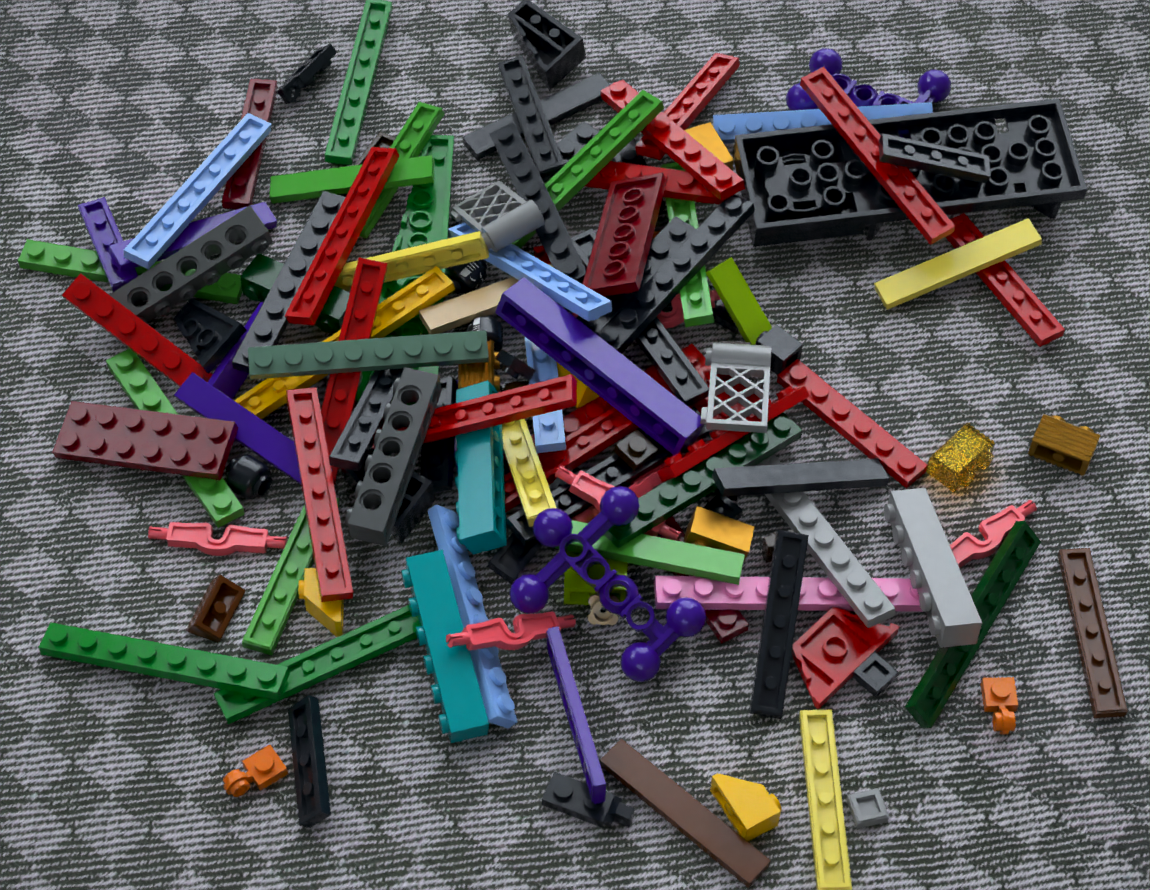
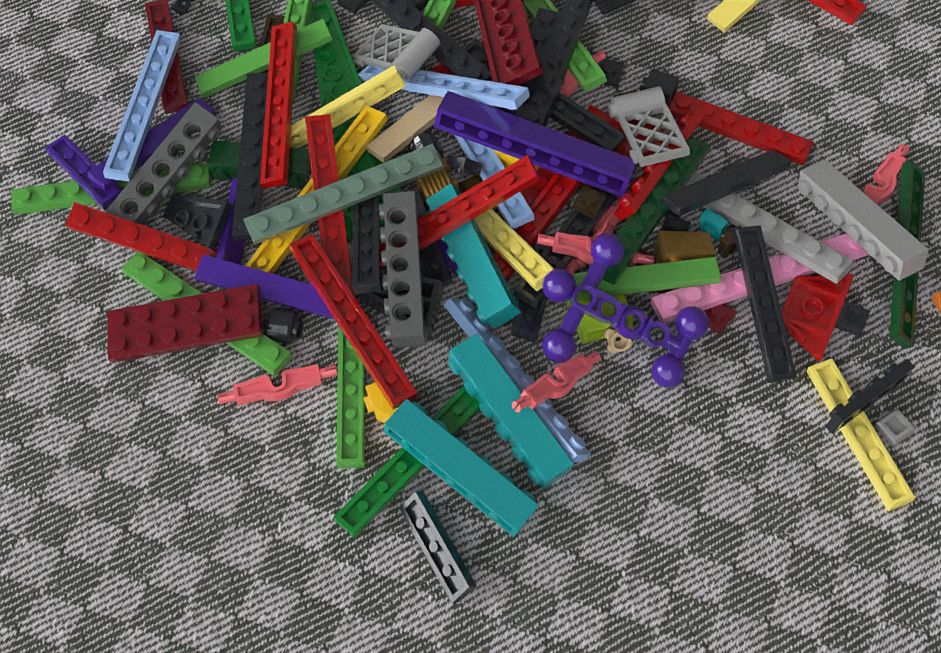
camera: 15 degrees left, 5 degrees up
(164, 661) = (278, 503): green plate -> none
(216, 609) = (301, 444): reddish brown slope -> none
(261, 767) = (399, 566): orange plate -> none
(367, 687) = (460, 467): none -> teal brick
(467, 276) = (391, 106): black head -> none
(574, 799) = (675, 500): black hinge -> none
(576, 715) = (639, 433): dark purple tile -> none
(685, 813) = (757, 481): reddish brown tile -> none
(739, 300) = (615, 59): lime tile -> none
(746, 805) = (803, 458): yellow slope -> none
(766, 518) = (713, 224): none -> teal plate
(857, 760) = (875, 390): none -> black plate
(961, 457) = (836, 128): clear yellow brick -> none
(1064, 444) = (908, 92): pearl gold brick -> none

